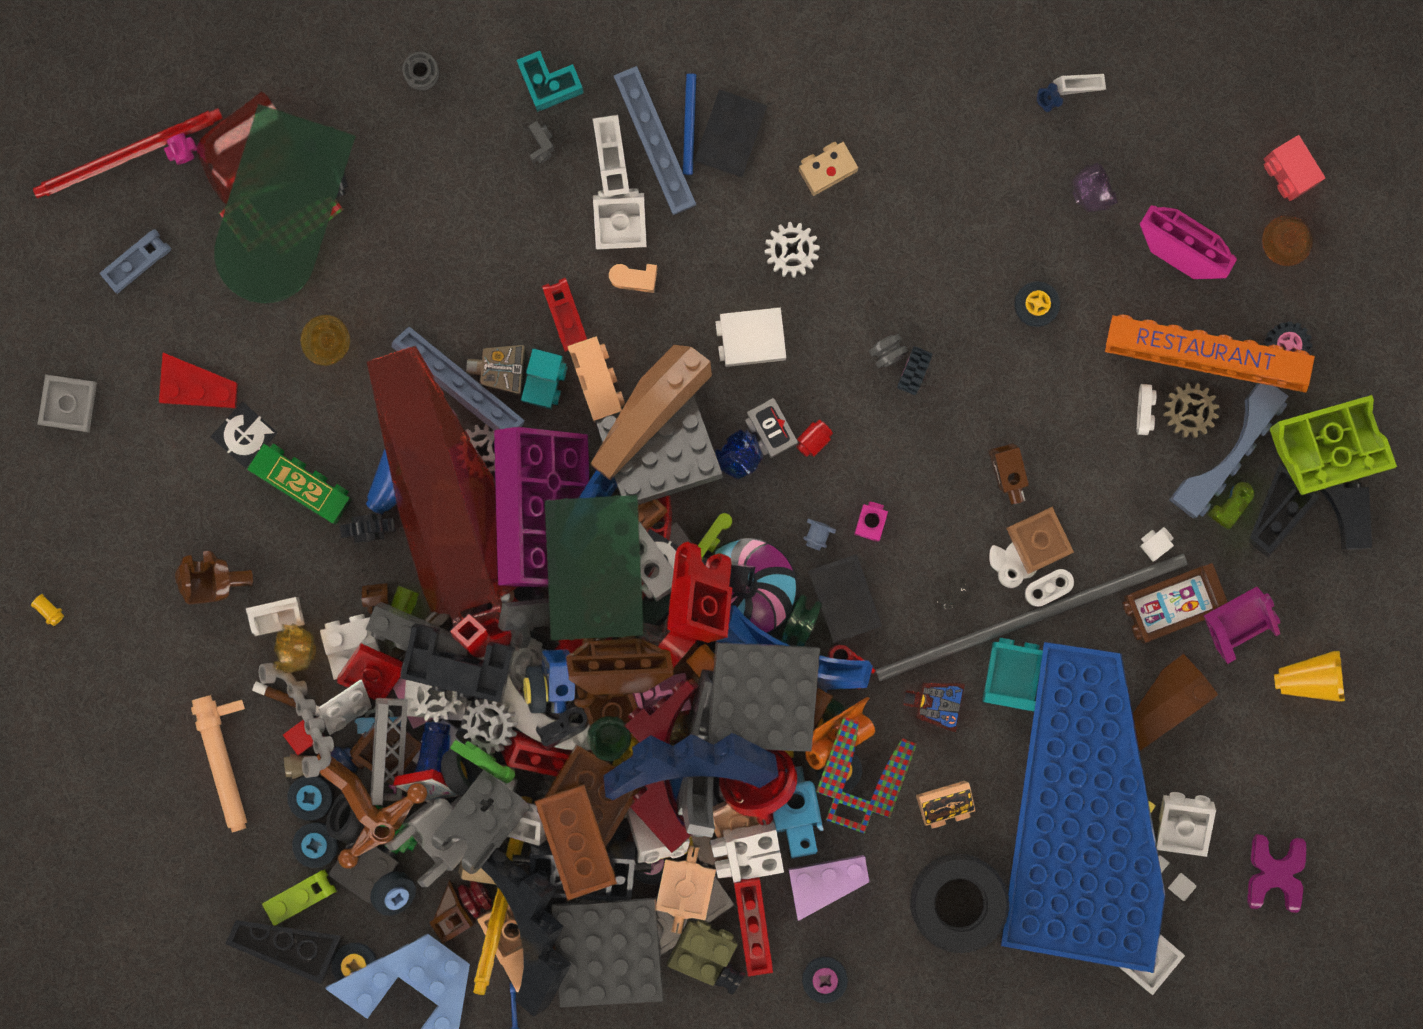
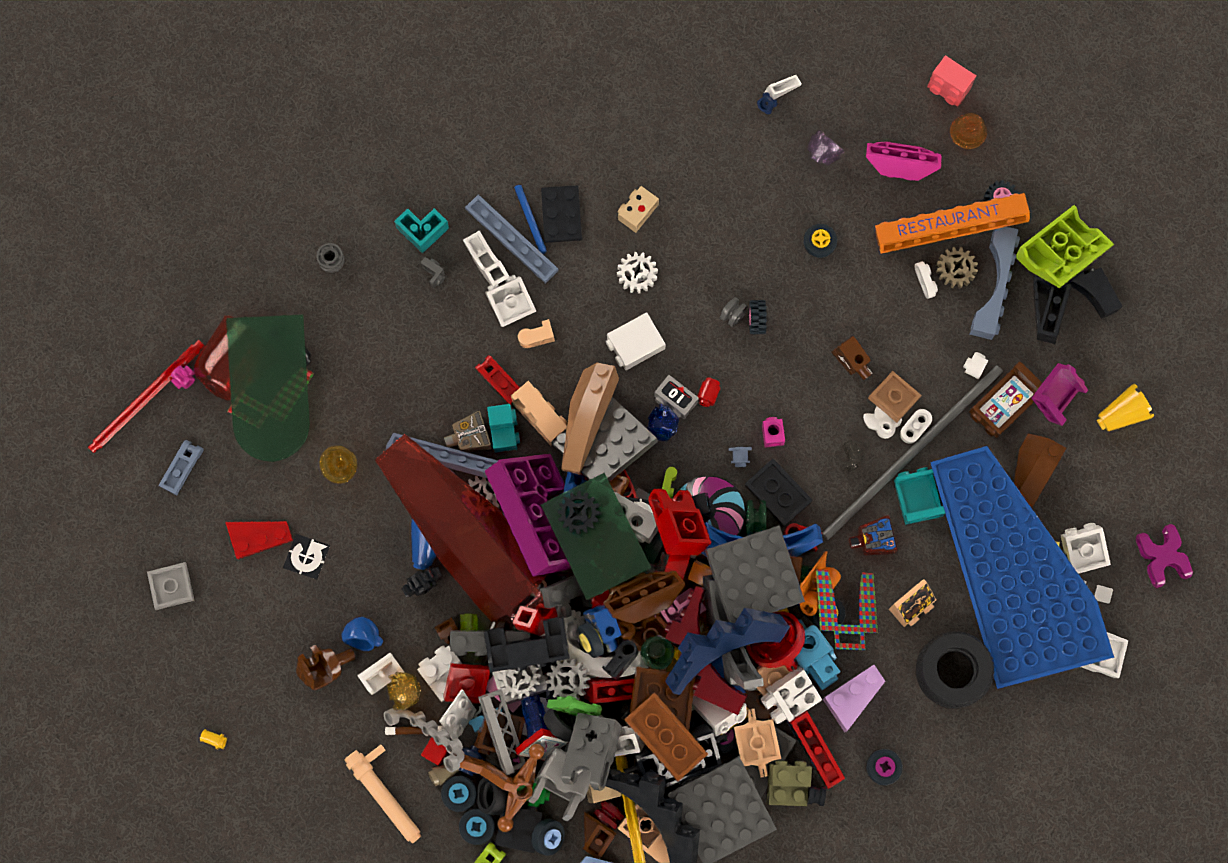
camera: 20 degrees left, 10 degrees down
(271, 559) = (361, 634): none -> blue piece
(300, 484) = (360, 572): green brick -> none
(589, 542) = (584, 507): none -> black gear
(1238, 499) = (1016, 315): clear neon green leg -> none

